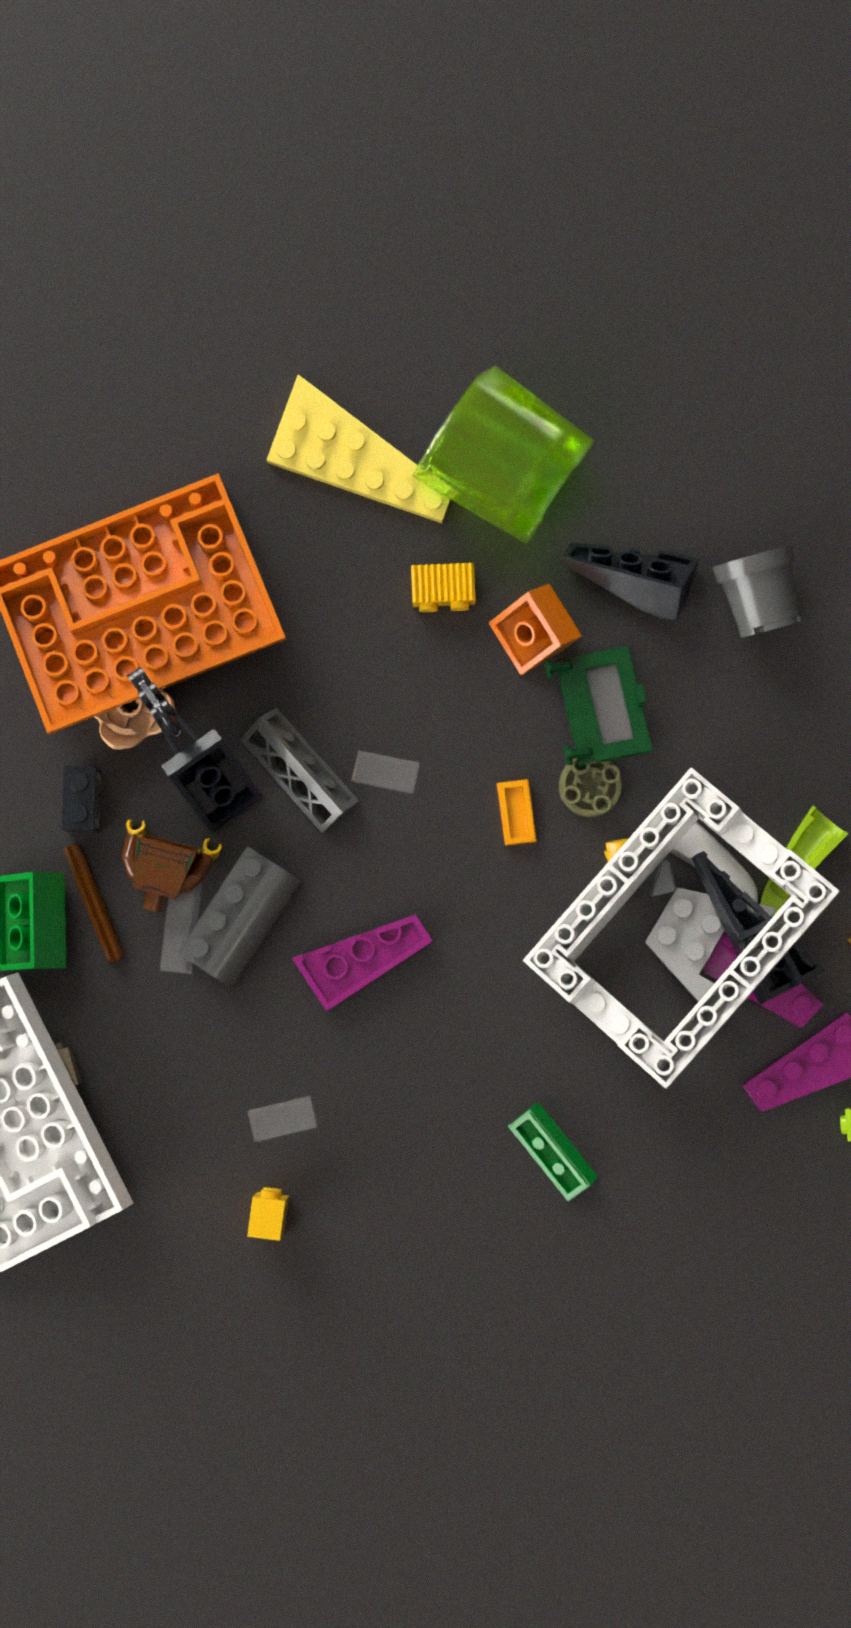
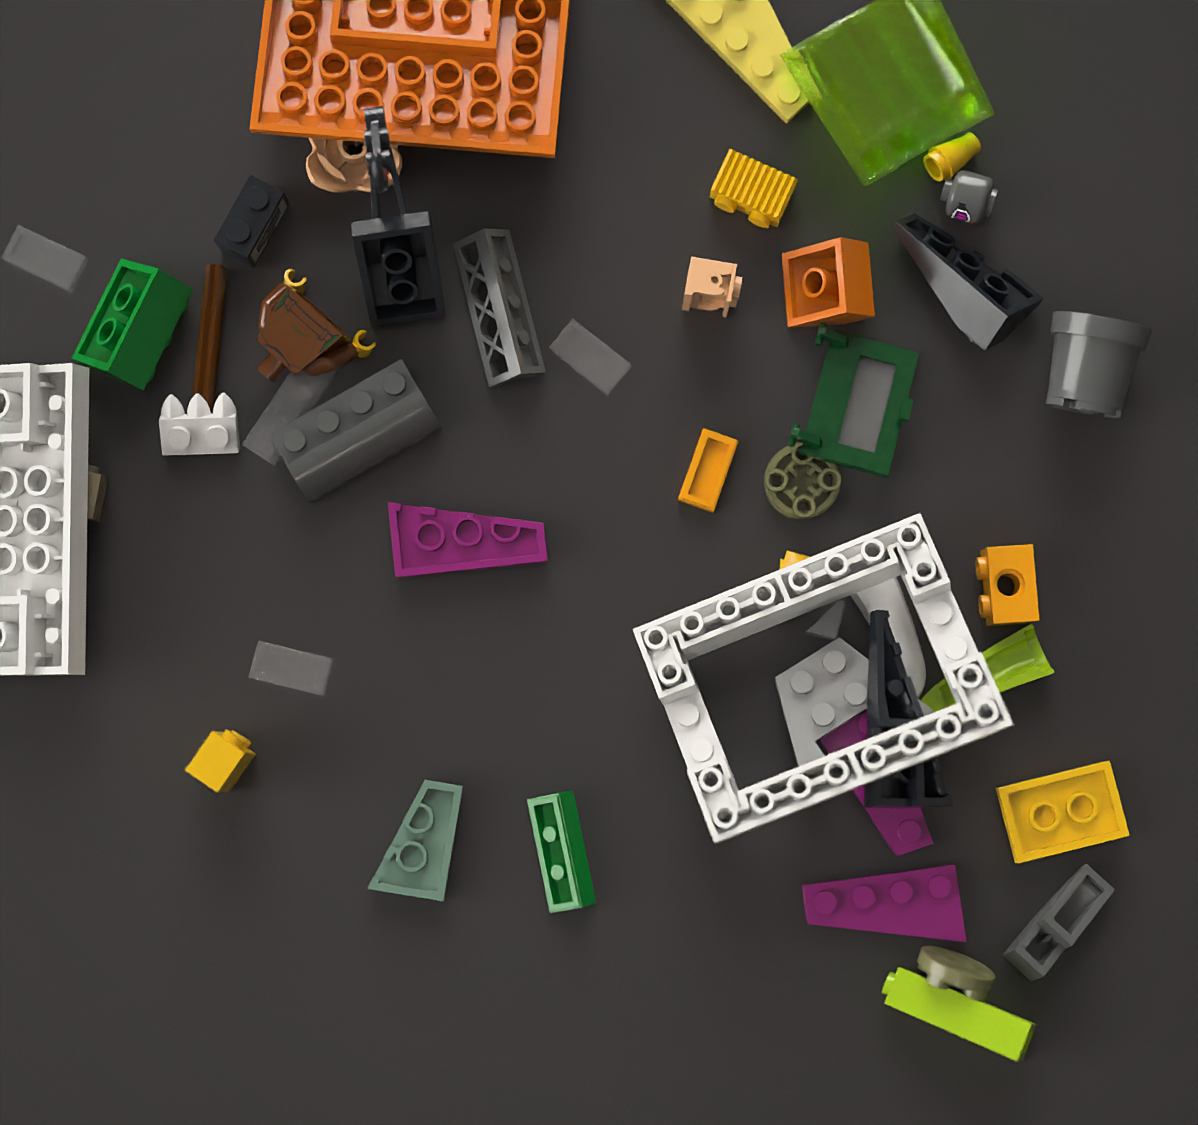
camera: 25 degrees right, 0 degrees up
(122, 975) = (199, 429): none -> white plate
(449, 1200) = (423, 847): none -> sand green wing
(450, 675) = (711, 285): none -> light nougat hinge
(577, 487) = (949, 157): none -> yellow cone
(606, 511) = (969, 197): none -> dark grey head
(798, 792) = (1019, 566): none -> light orange brick

